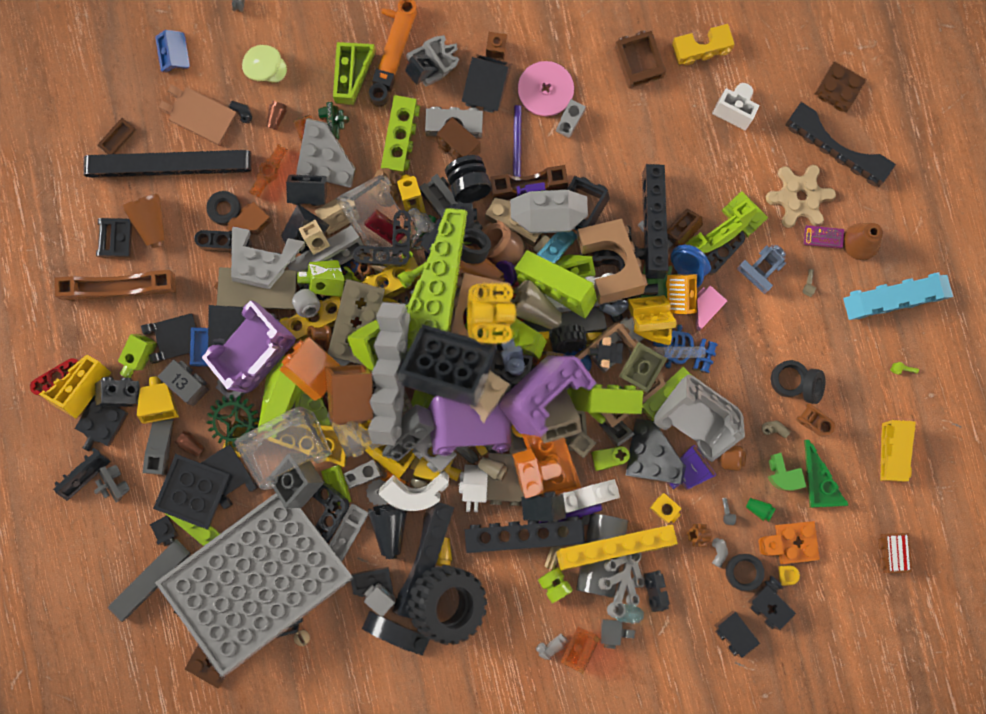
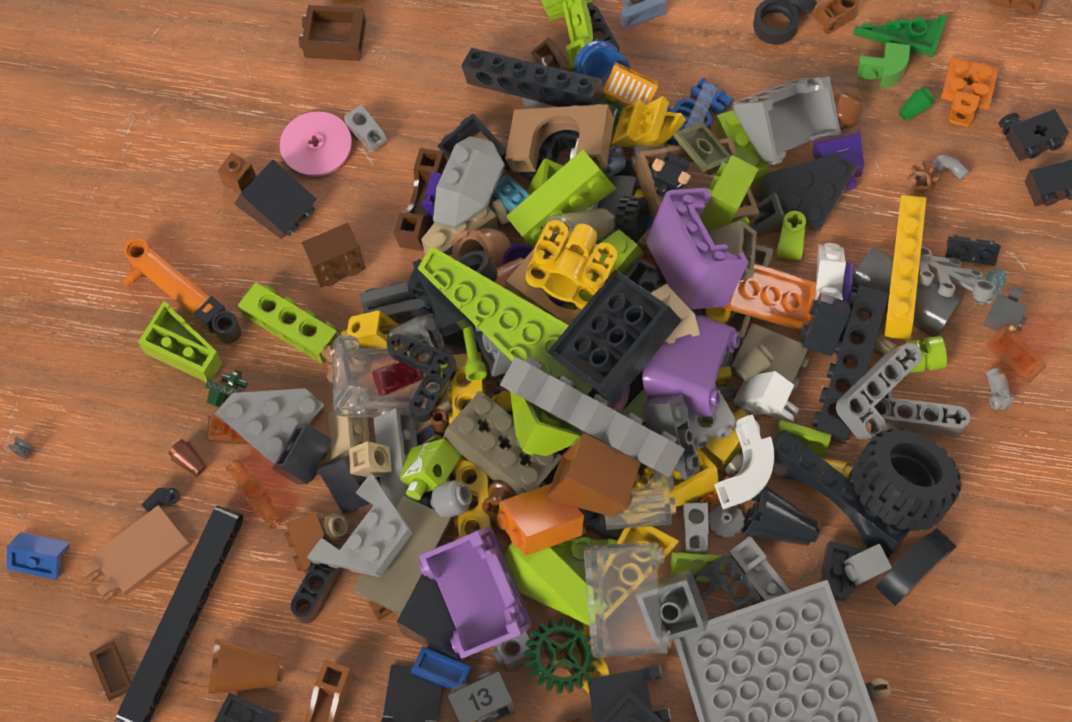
camera: 60 degrees left, 15 degrees down
(218, 197) = (268, 554): black tyre -> none
(264, 64) = (115, 447): yellowish green piece -> none
(267, 239) = (340, 525): none -> tan plate
(420, 68) = (222, 264): black slope -> none
(440, 55) = (216, 249): light grey plate -> none
(457, 523) = (812, 439): none -> lime plate
(468, 179) = (385, 256): black wheel -> none
(470, 119) = (291, 271): light grey arch -> none
(509, 564) = (880, 385): none -> light grey beam
(510, 594) = (916, 412): none -> light grey beam
(512, 358) = (635, 269): sand blue hips -> none
(517, 141) = (360, 197): dark purple bar -> none
(532, 472) = (777, 315): orange brick -> none
(582, 444) = (767, 252): dark tan tile -> none
(656, 507) = (872, 210): yellow brick -> none
(708, 304) = (656, 66): bright pink slope -> none
(729, 519) = (913, 143): dark grey hand -> none
(759, 572) = (992, 133): black tyre -> none
(775, 427) = (825, 56): dark tan arm -> none
(788, 575) = (1003, 105): yellow tile -> none

